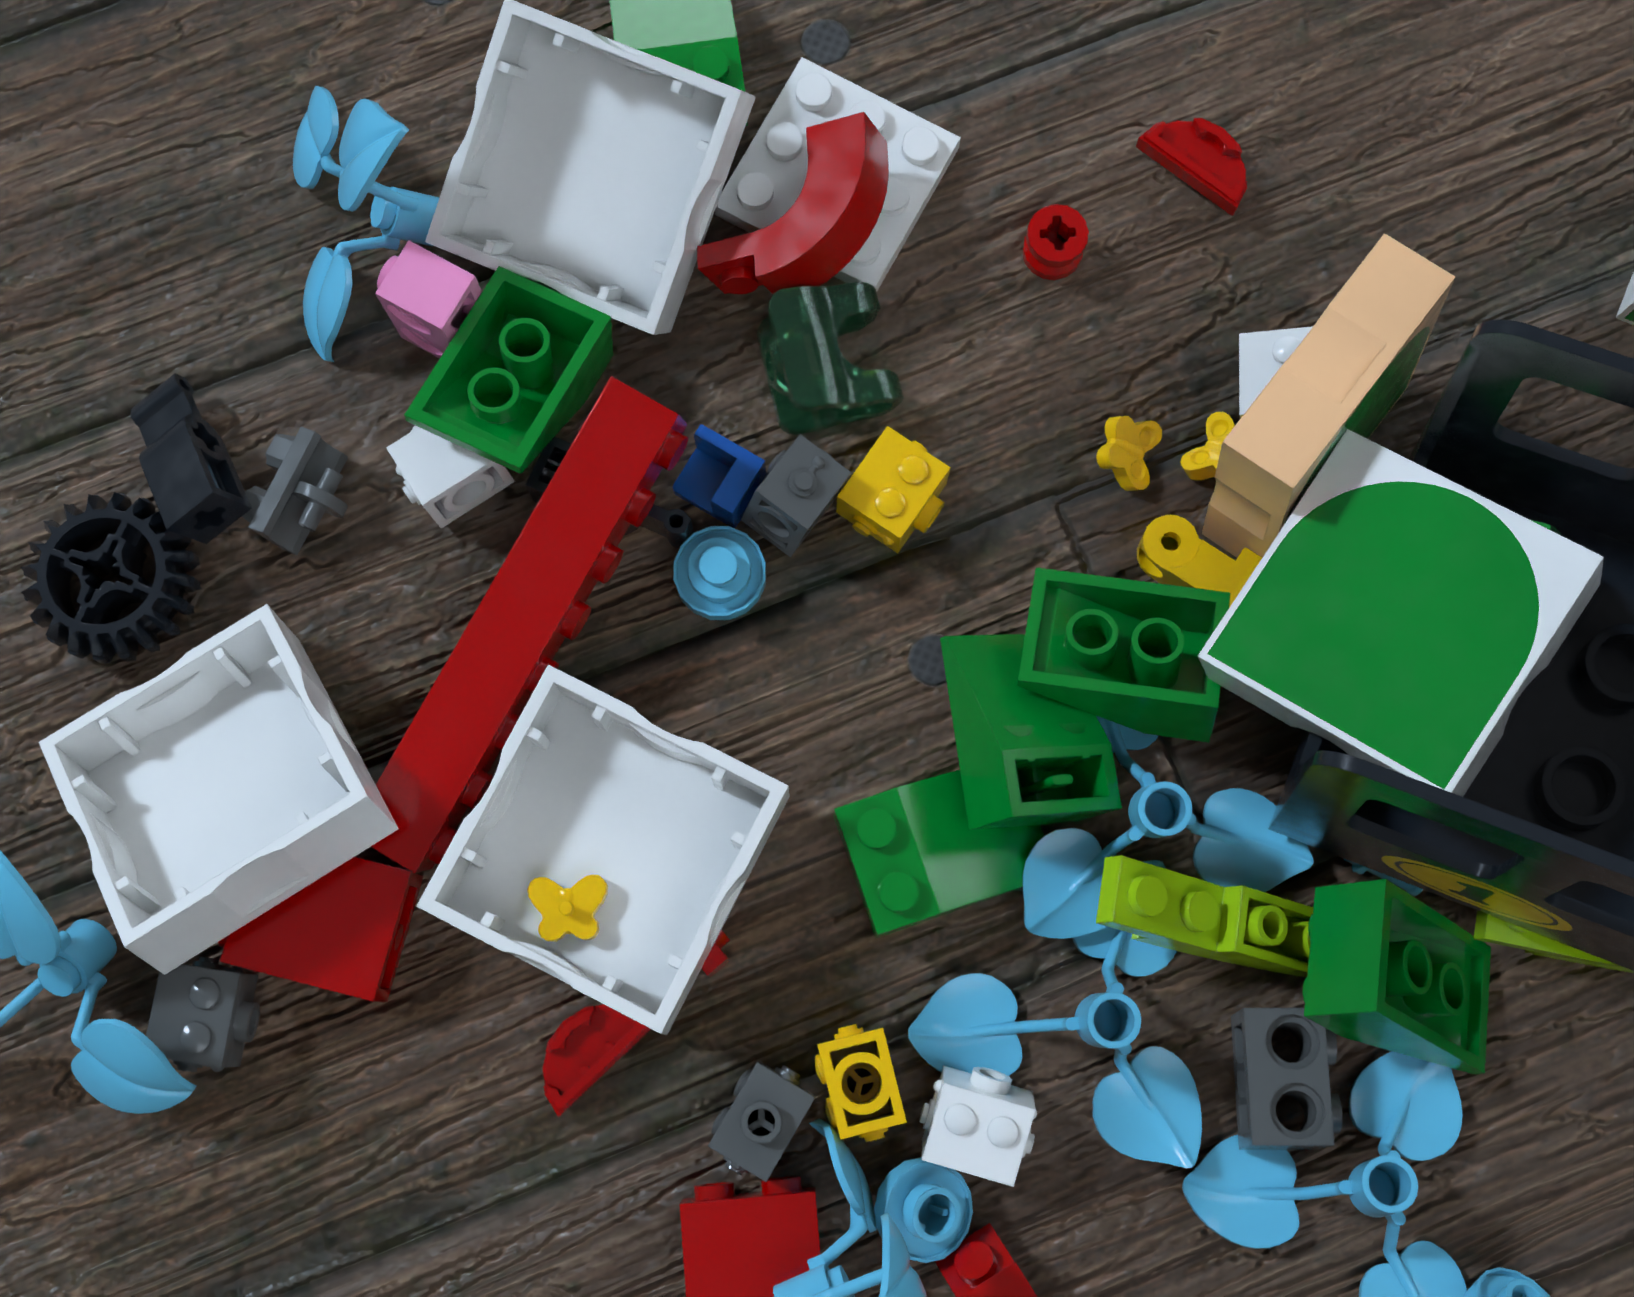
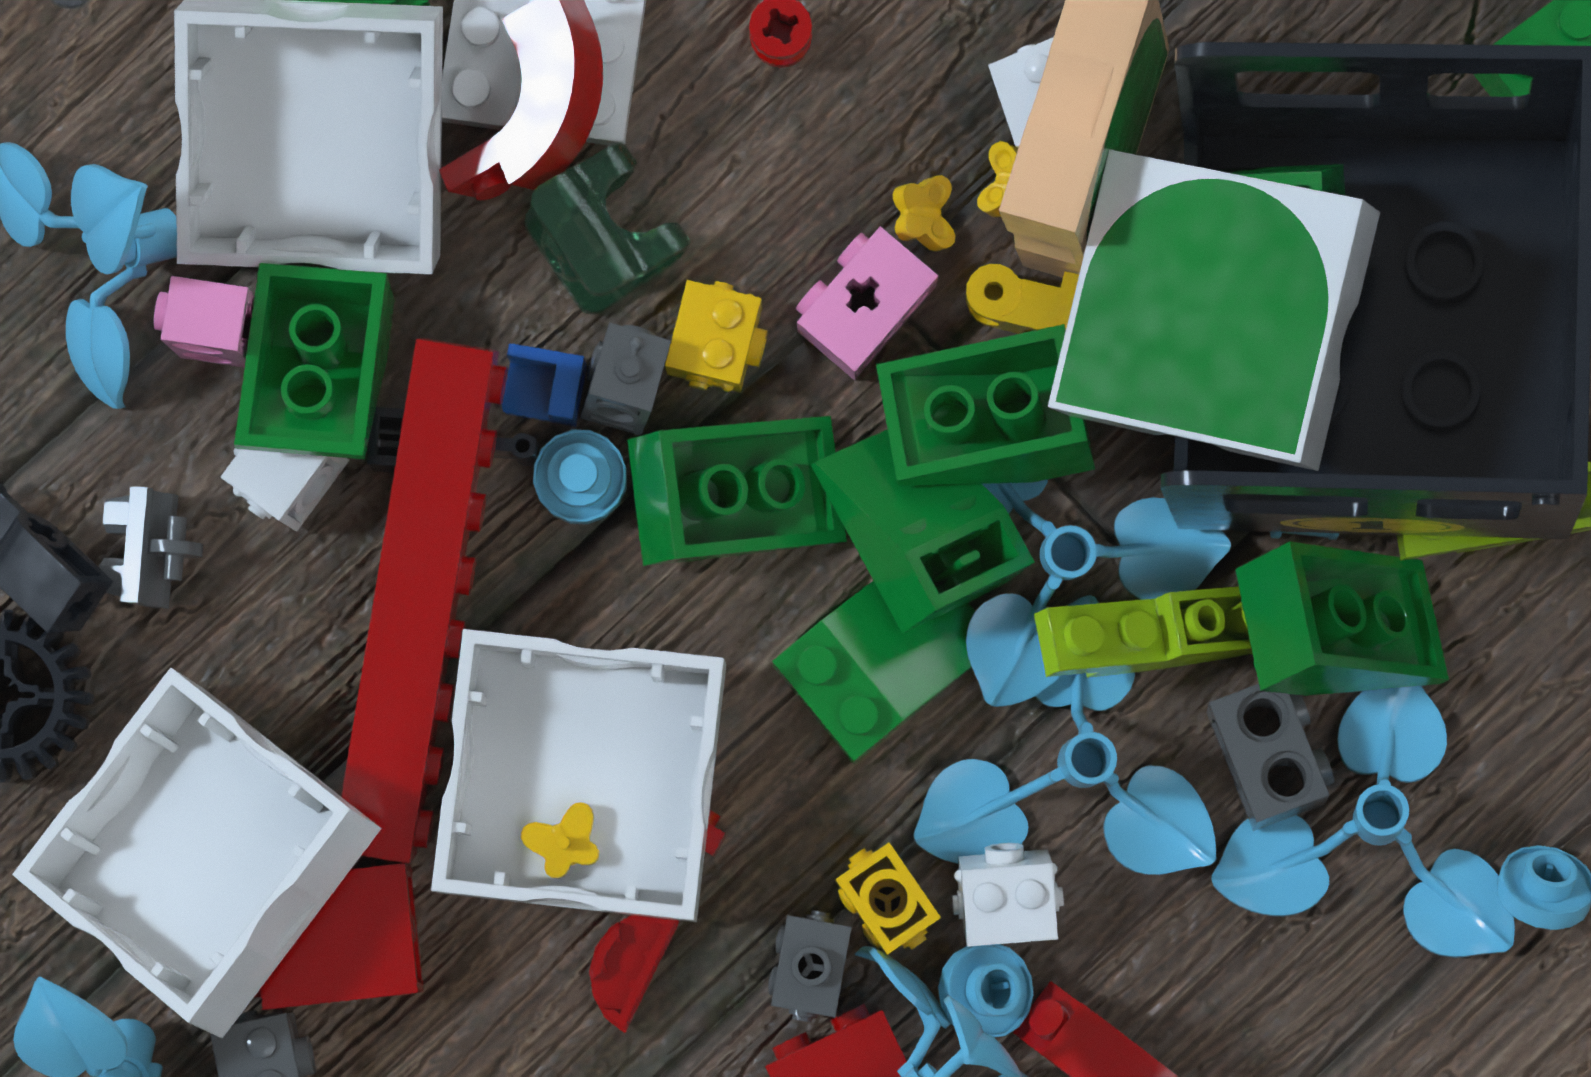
camera: 15 degrees left, 5 degrees up
(856, 636) = (732, 490): none -> green slope
(1024, 538) = (899, 286): none -> bright pink brick

